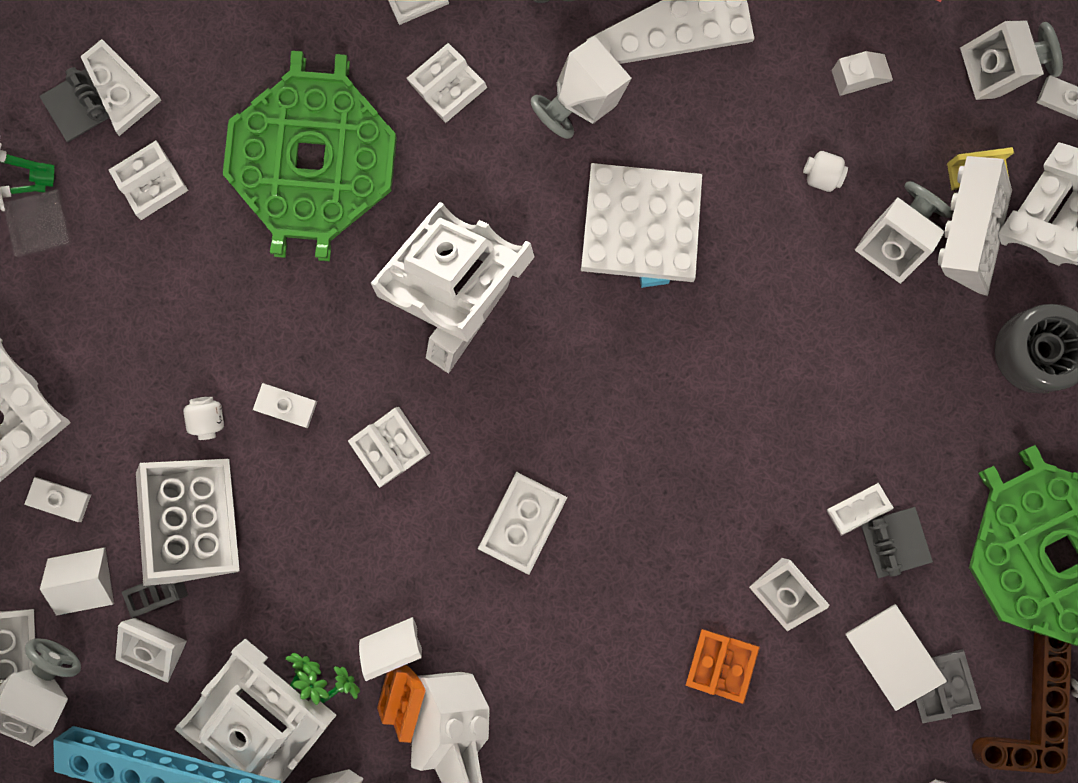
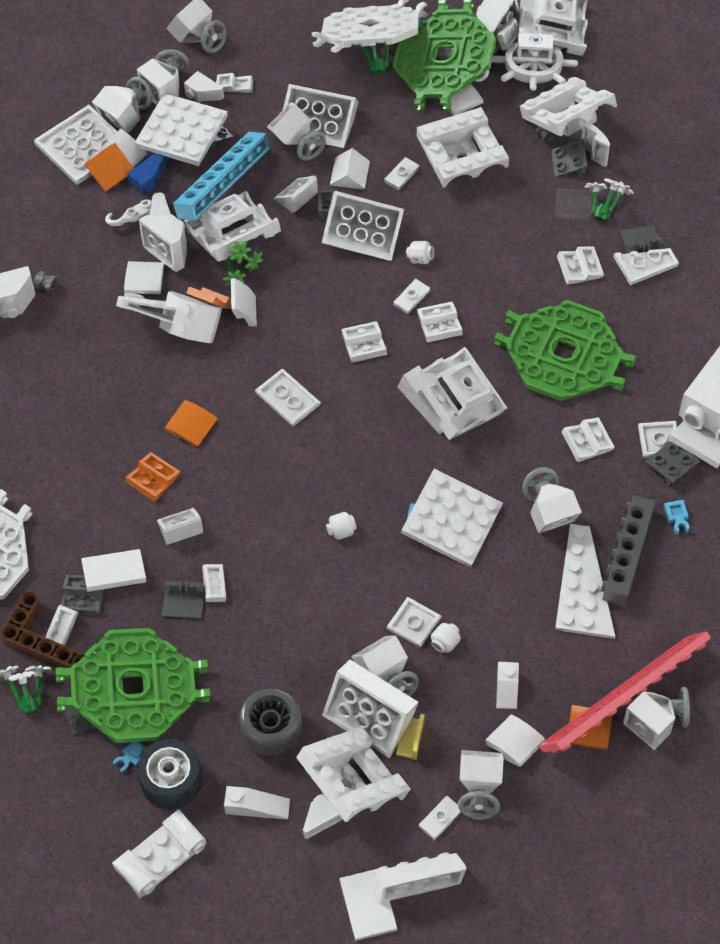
camera: 110 degrees right, 25 degrees down
(306, 356) = (439, 314): none -> white slope
(618, 646) = (190, 423): none -> orange slope
(710, 367) = (341, 525): none -> white head
(813, 223) = (413, 622): none -> white tile
(935, 38) = (515, 740): none -> white slope
(1005, 693) = (62, 625): none -> white plate

